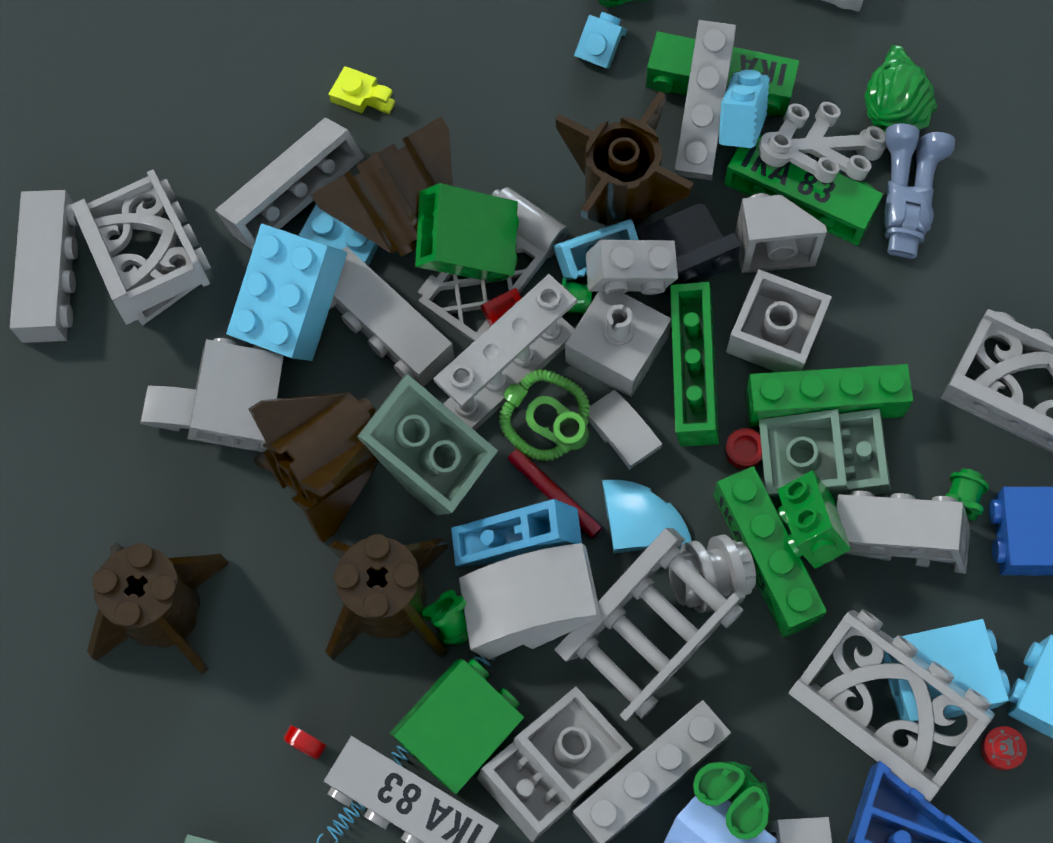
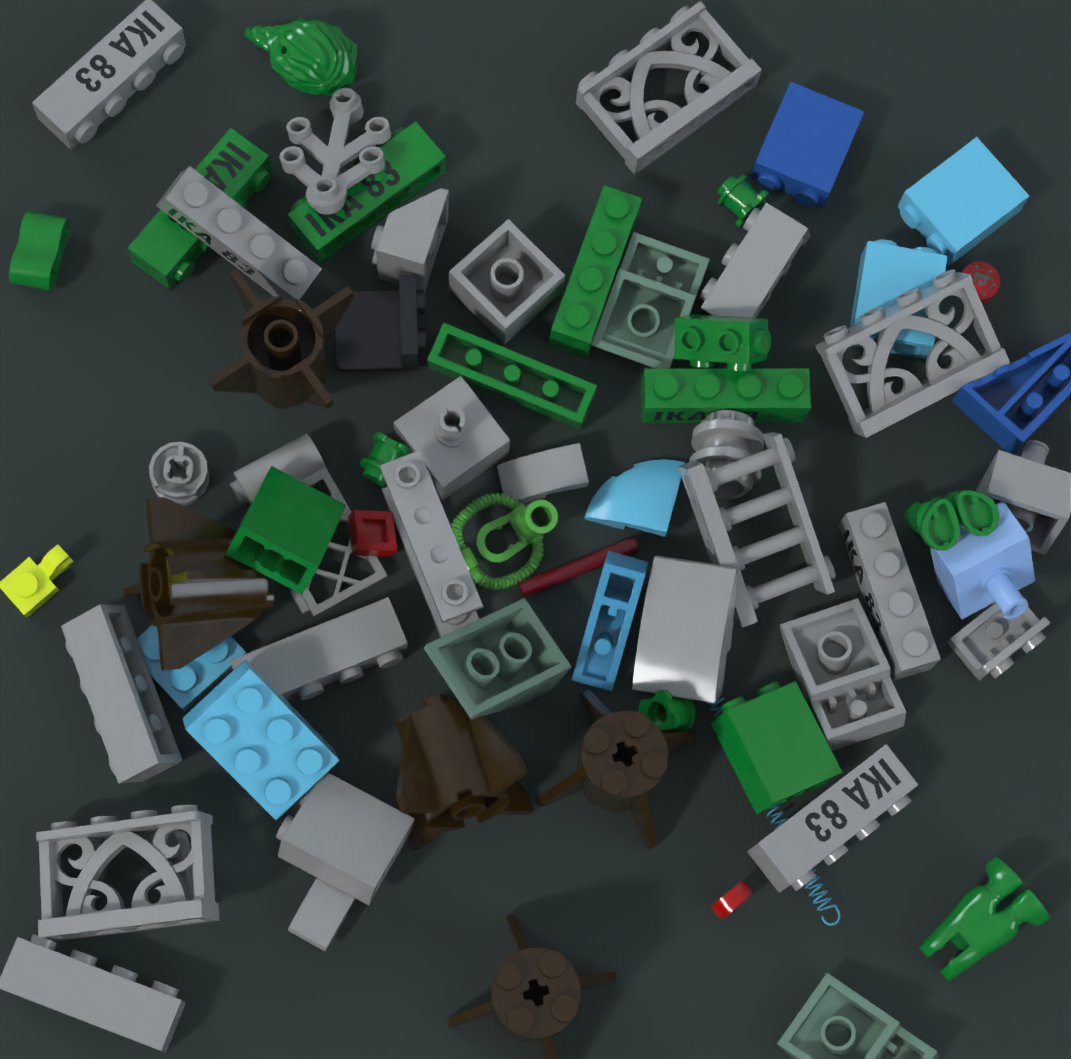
camera: 80 degrees left, 5 degrees up
(491, 152) = (179, 473): none -> light grey wheel
(572, 253) = (350, 422): medium azure brick -> none
(600, 39) = (98, 308): medium azure bracket -> none
(631, 266) = (398, 385): light grey brick -> none
(743, 109) = (271, 203): medium azure brick -> none
(744, 448) = (610, 372): red tile -> none
(909, 209) = (432, 106): sand blue piece -> none

